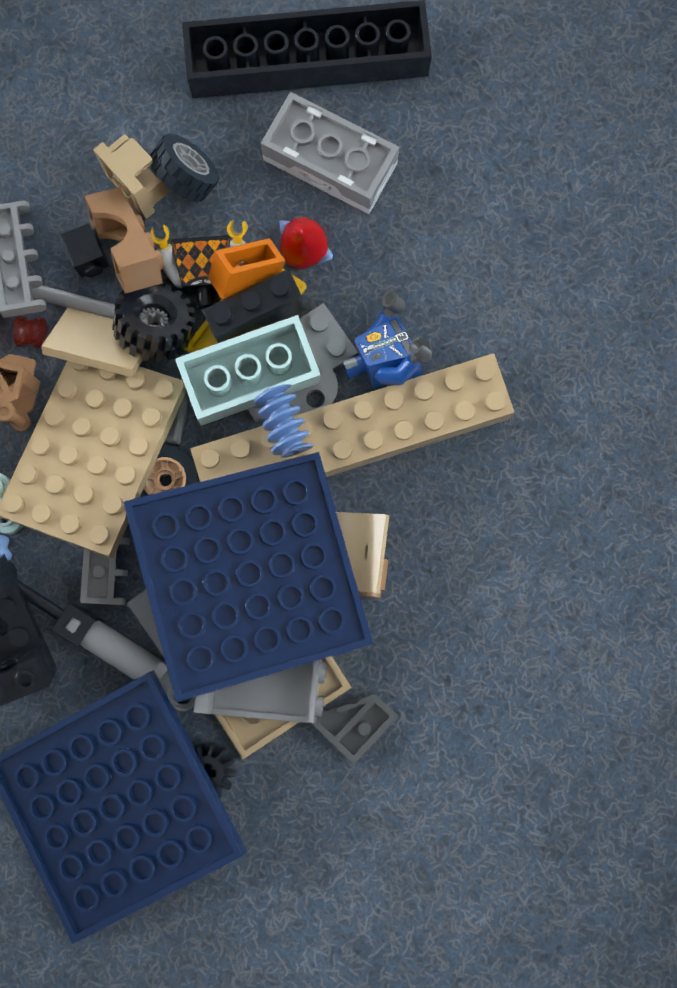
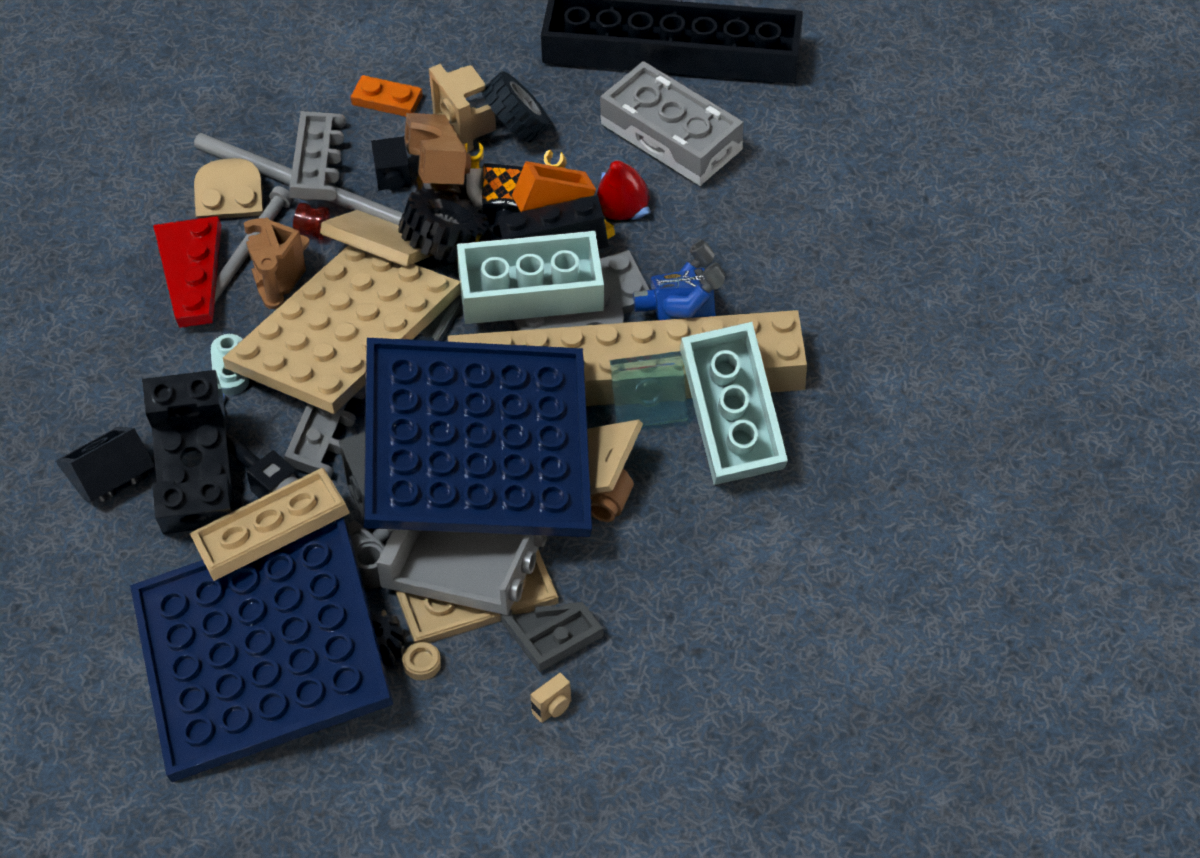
camera: 15 degrees right, 30 degrees down
(59, 167) = (386, 96): none -> orange plate
(88, 692) = (269, 523): none -> tan tile
(253, 774) = (421, 661): none -> tan tile
(281, 421) = (552, 312): medium blue piece -> none
(373, 795) = (551, 698): none -> tan plate
(381, 466) = (649, 389): none -> clear light blue tile
(462, 474) = (733, 403): none -> light aqua brick

